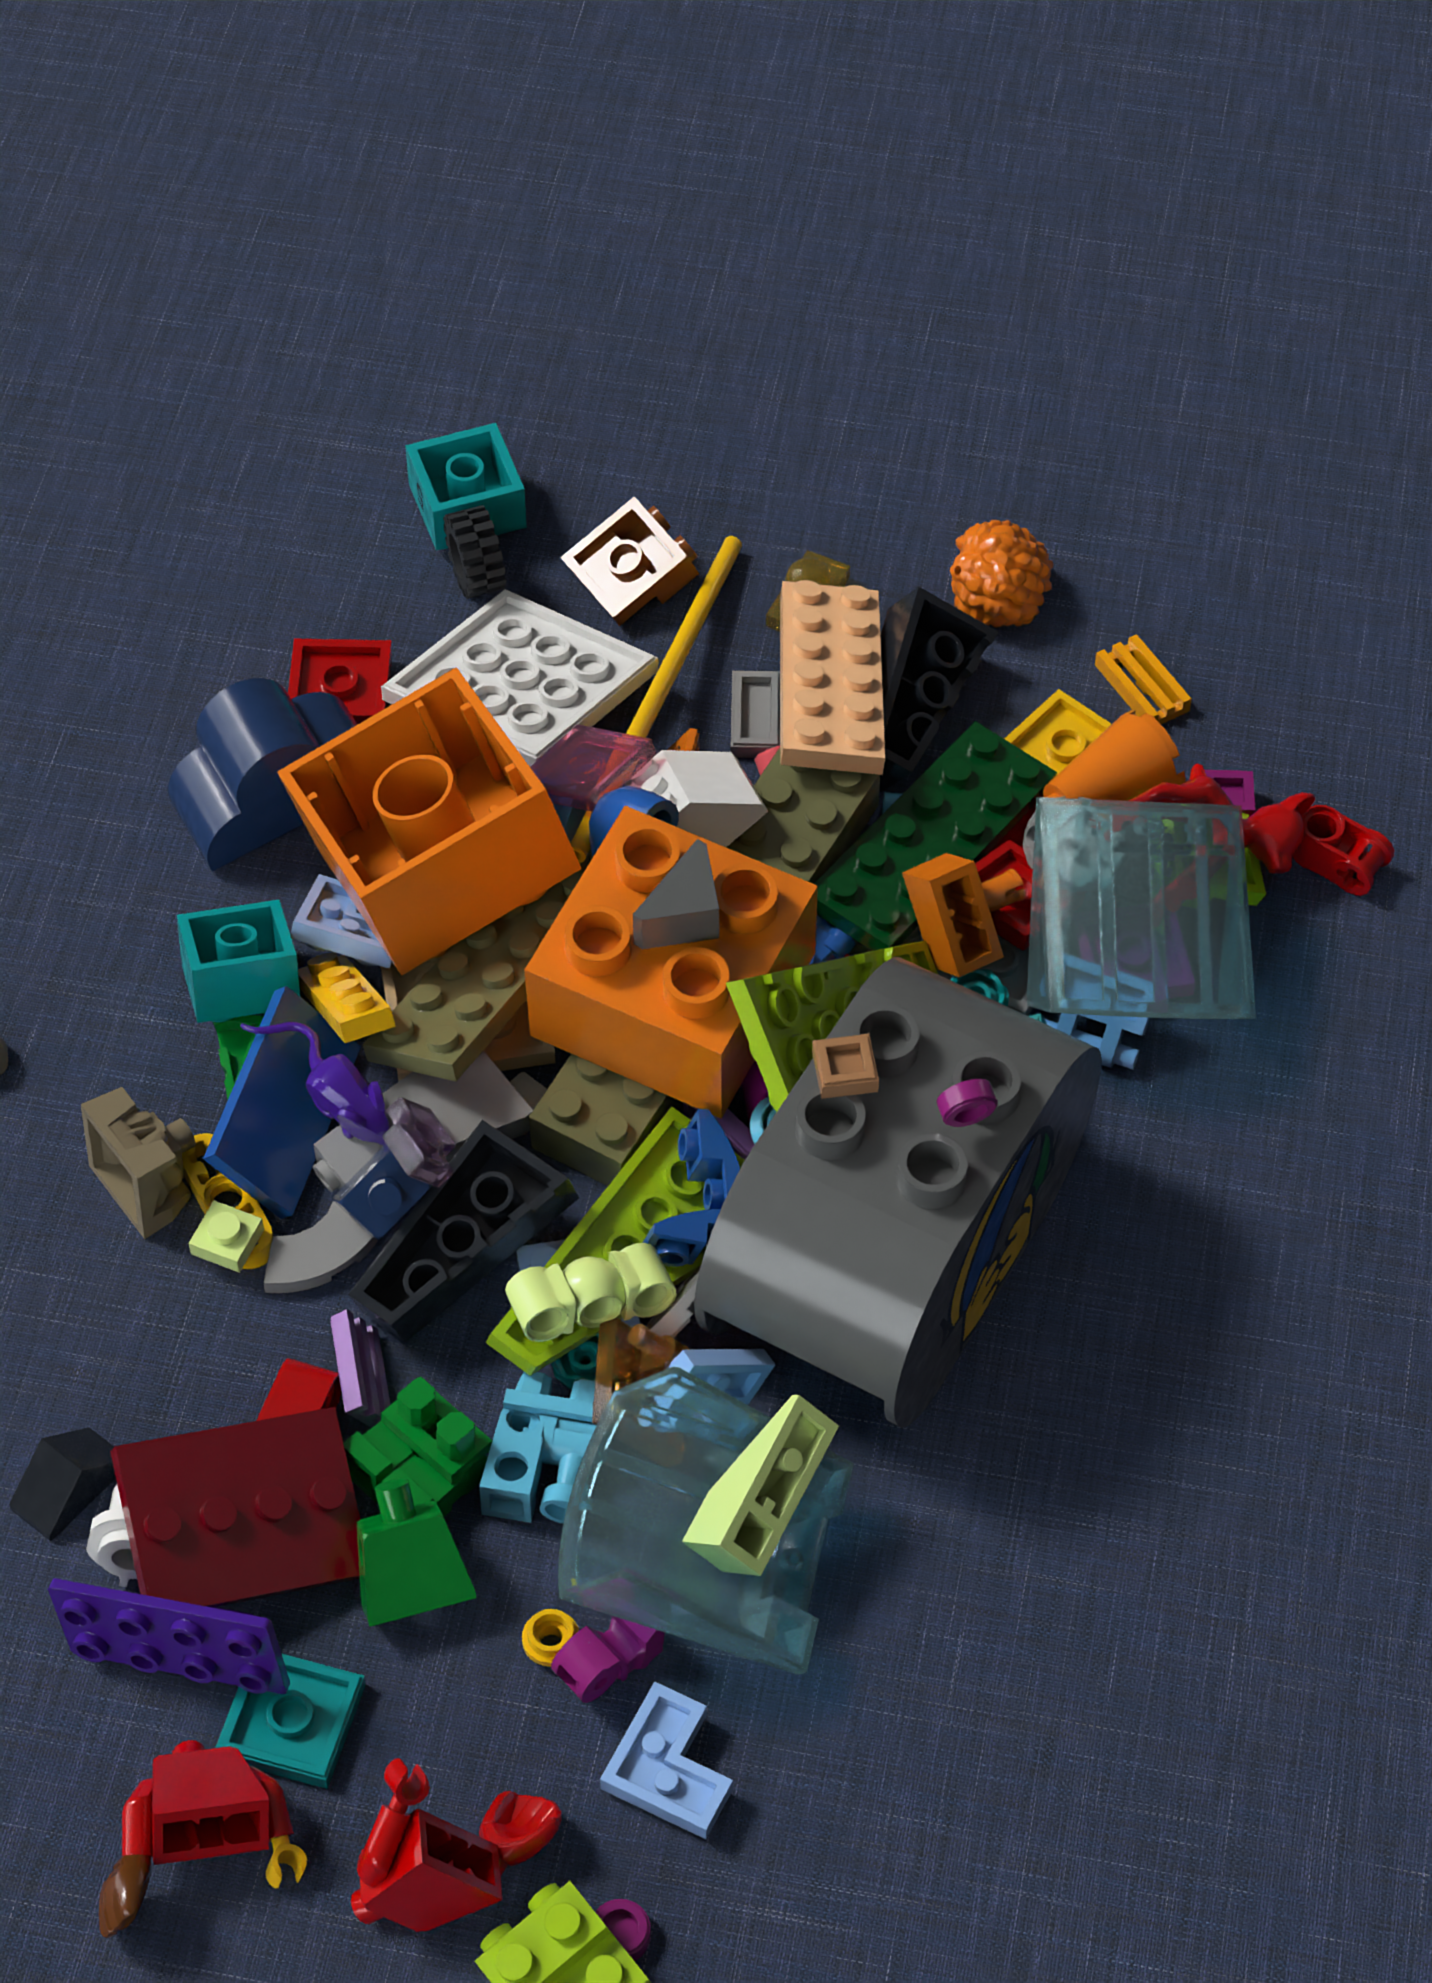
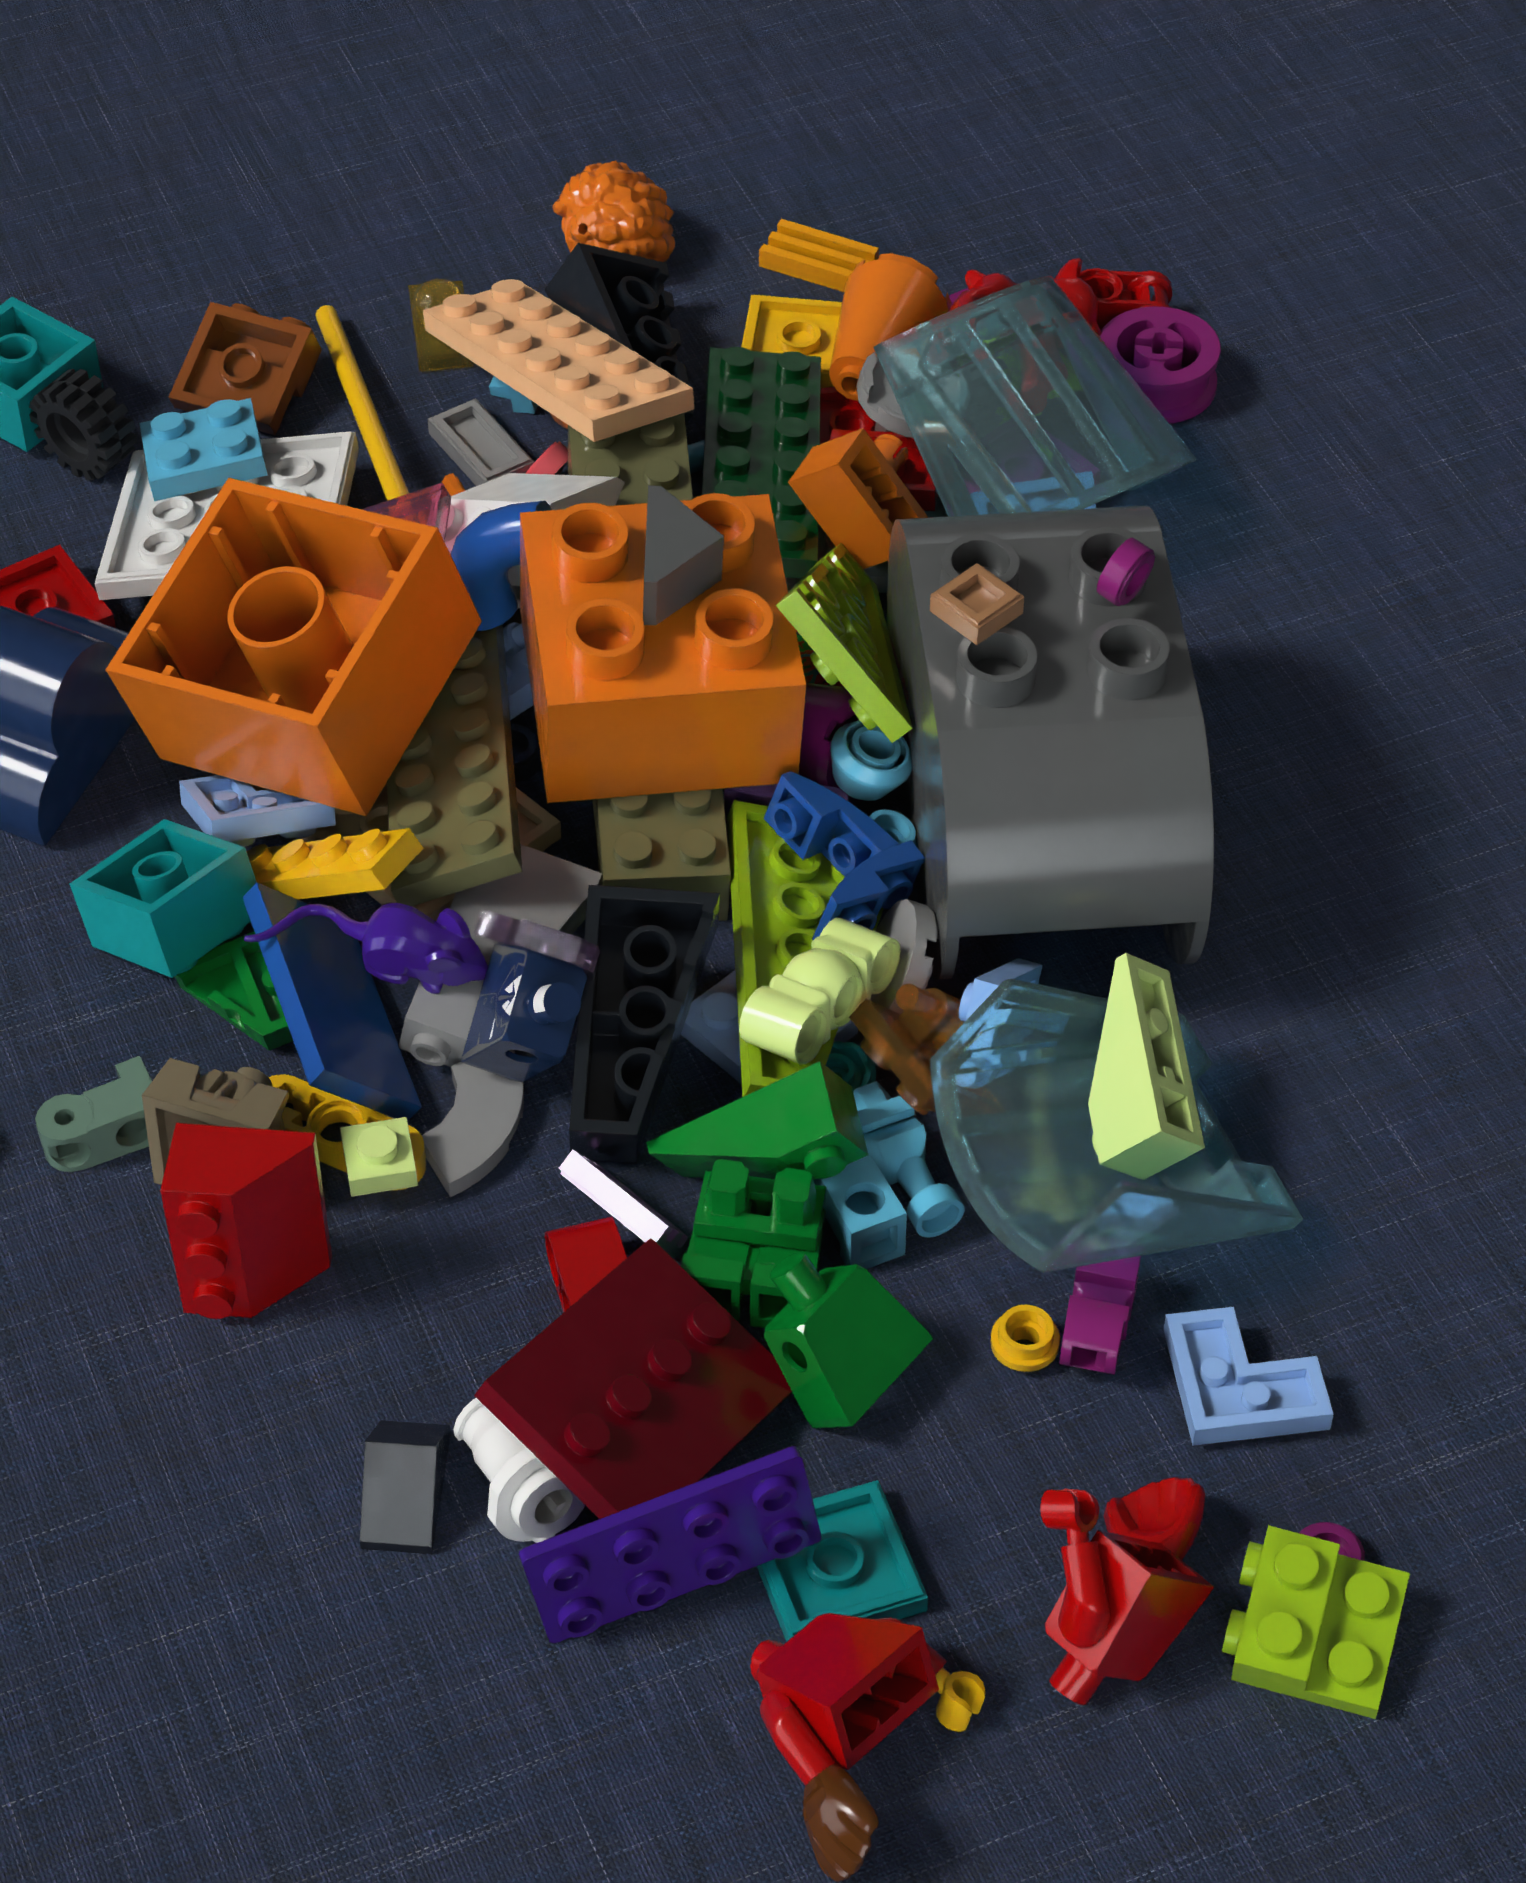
camera: 35 degrees left, 5 degrees down
(59, 1096) = (96, 1124): none -> sand green leg
(81, 1231) = (243, 1216): none -> red slope
(492, 1382) = (793, 1123): none -> green slope
(541, 615) = (202, 448): none -> medium azure plate
(1328, 895) = (1158, 344): none -> magenta wheel

